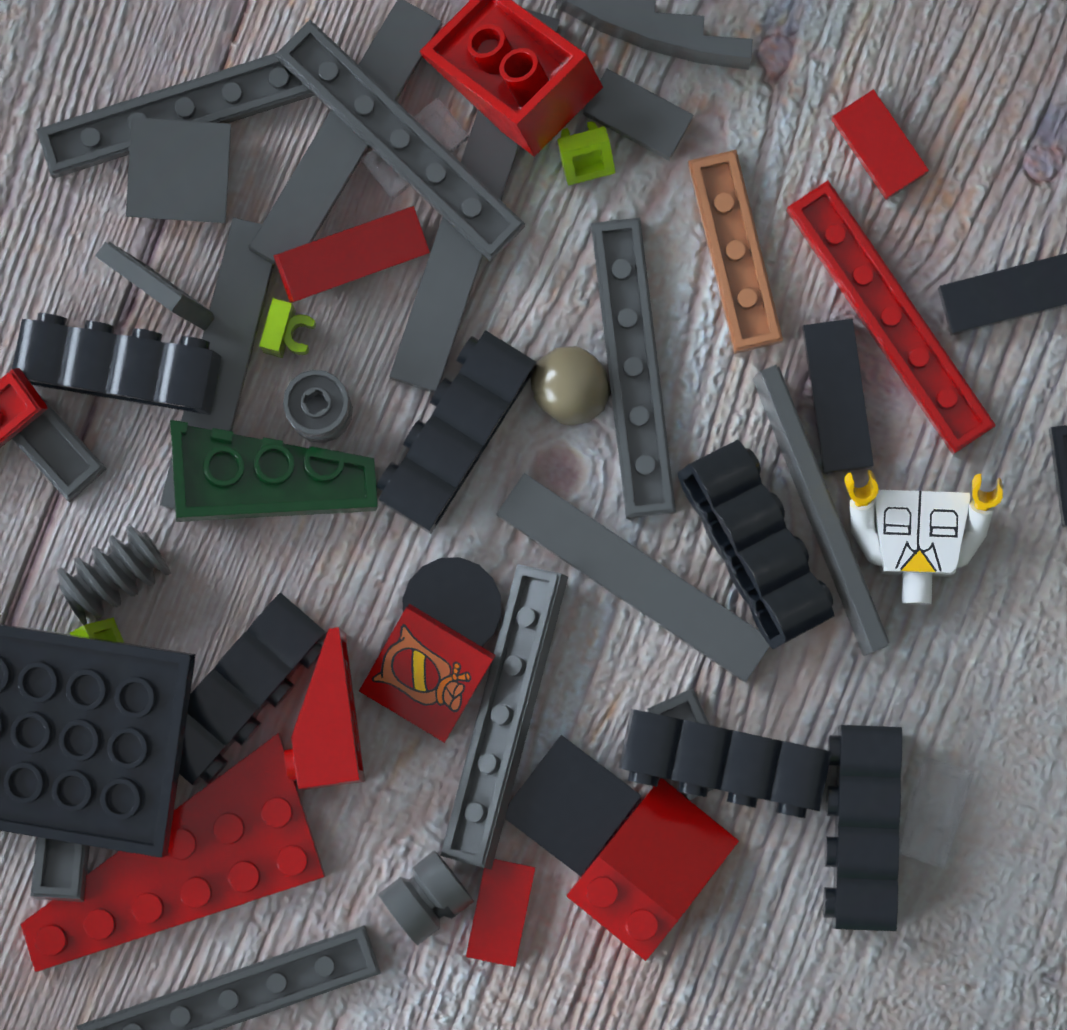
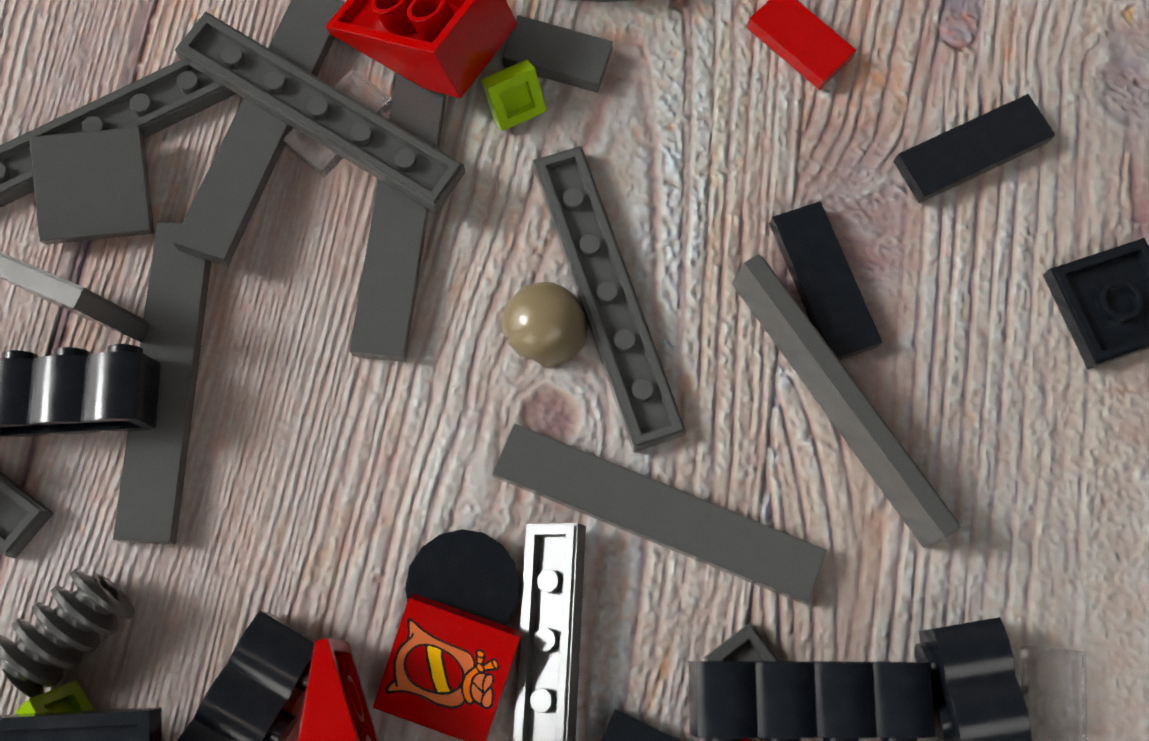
camera: 20 degrees left, 10 degrees down
(250, 477) = (197, 490): dark green wing -> none
(280, 327) = (221, 321): lime tile -> none
(318, 406) = (273, 393): dark grey wheel -> none
(351, 254) = (284, 232): red tile -> none
(457, 431) = (432, 395): black brick -> none
(735, 251) = (685, 164): nougat tile -> none
(753, 540) = (786, 452): black brick -> none
(890, 317) = (858, 198): red tile -> none
(920, 531) = (954, 397): white torso -> none

